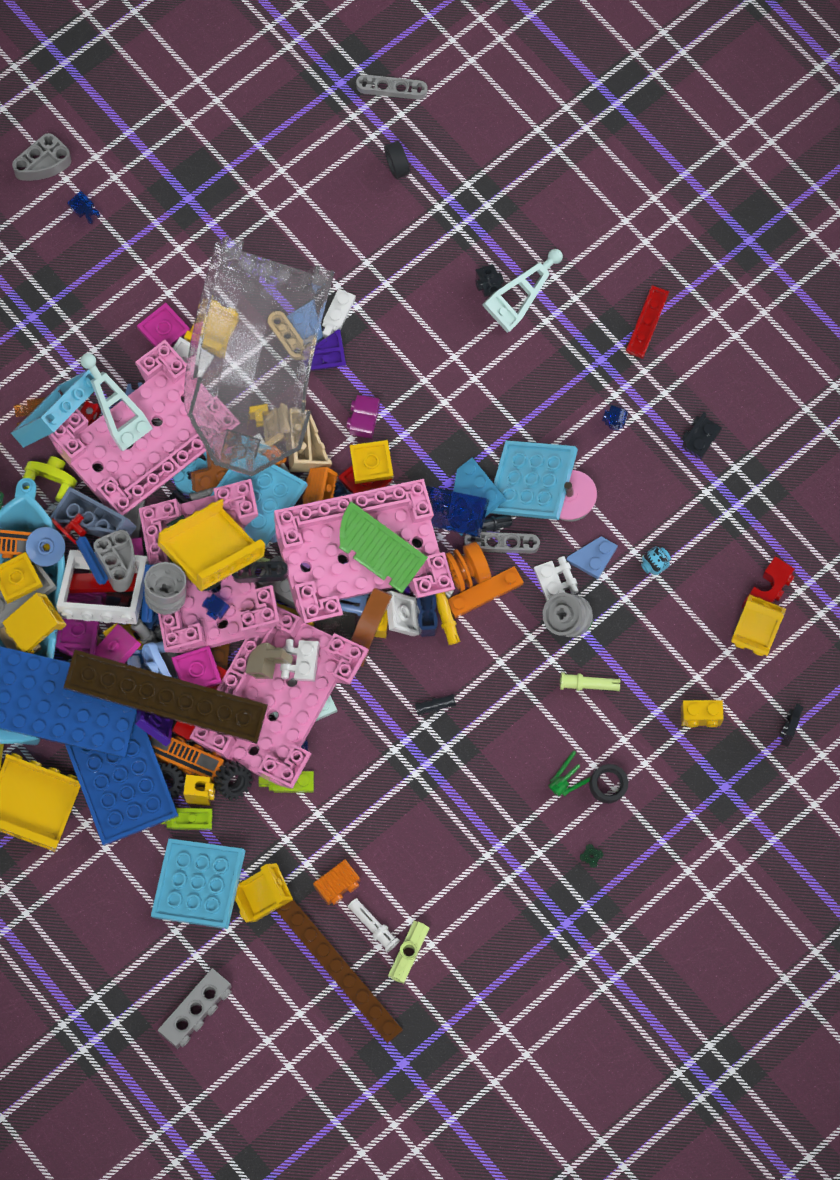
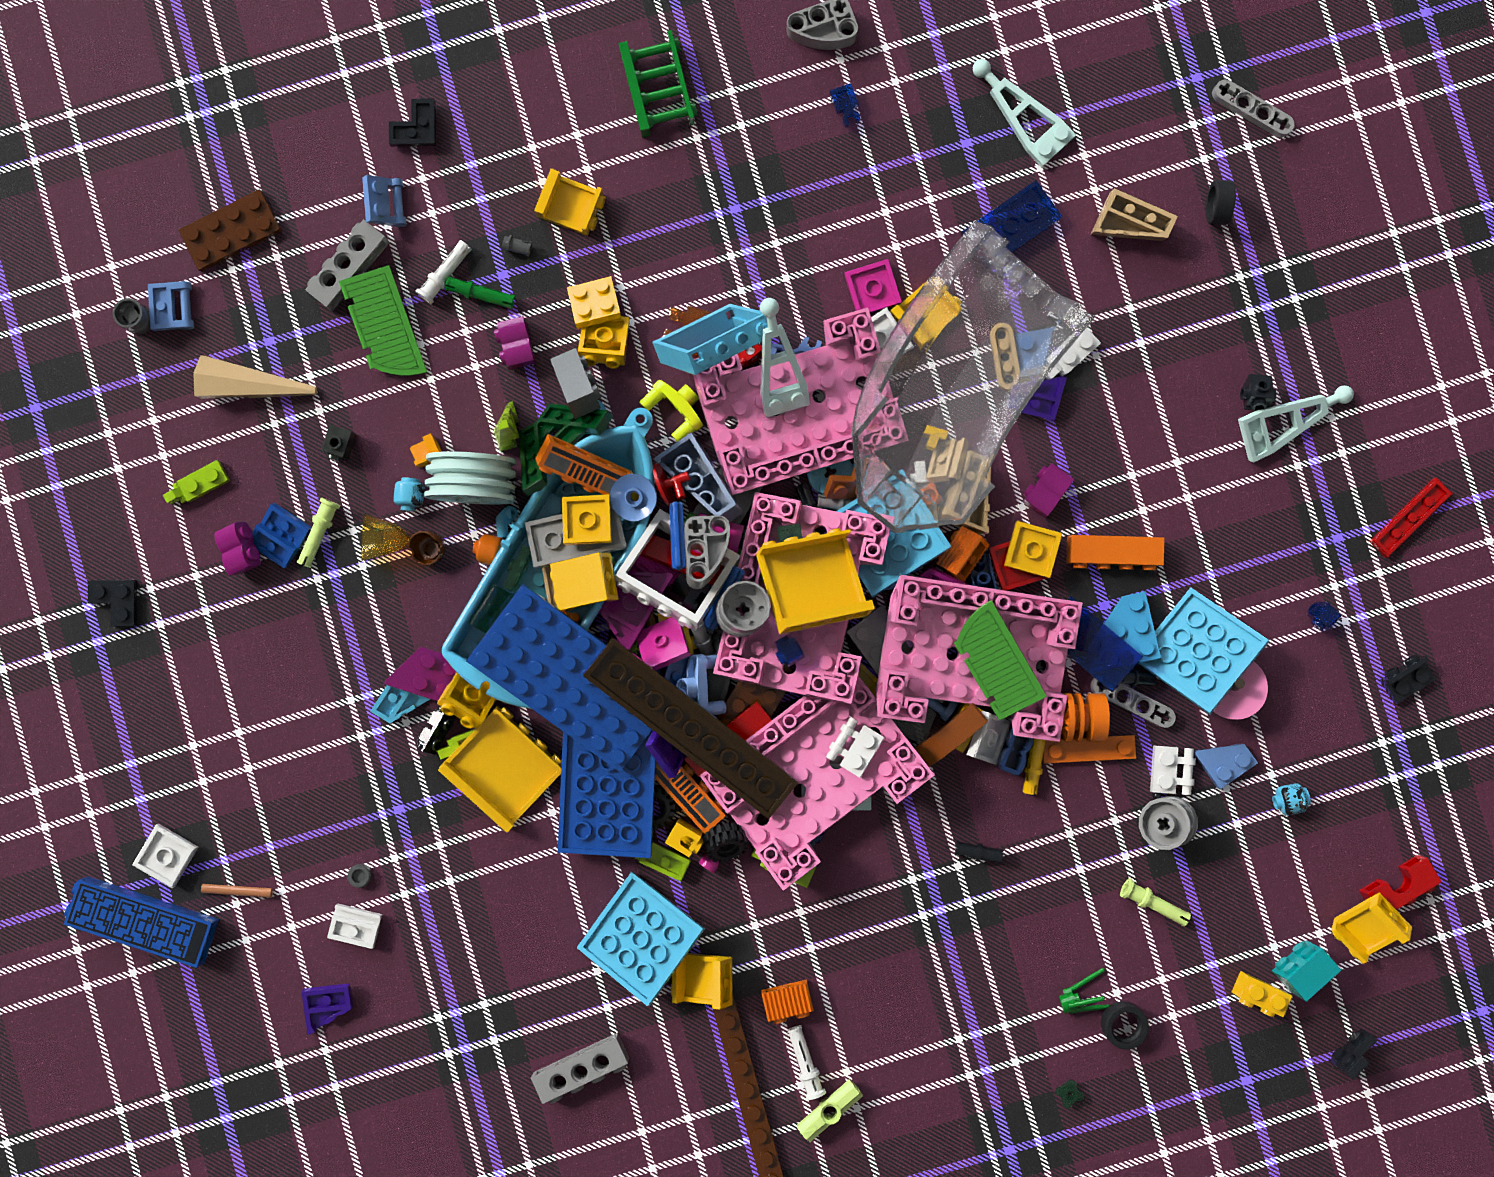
camera: 25 degrees right, 15 degrees up
(197, 667) = (740, 706): dark pink plate -> none
(227, 805) = (709, 864): none -> dark pink hinge
(252, 169) = (1051, 141): none -> light aqua plate
(257, 229) = (1022, 216): none -> clear blue plate
(263, 660) = (814, 731): dark tan brick -> none
(274, 565) = (858, 642): black beam -> none
(337, 198) = (1132, 218): none -> tan wedge
(436, 438) = (1115, 550): none -> orange brick
(726, 672) = (1306, 970): none -> teal brick

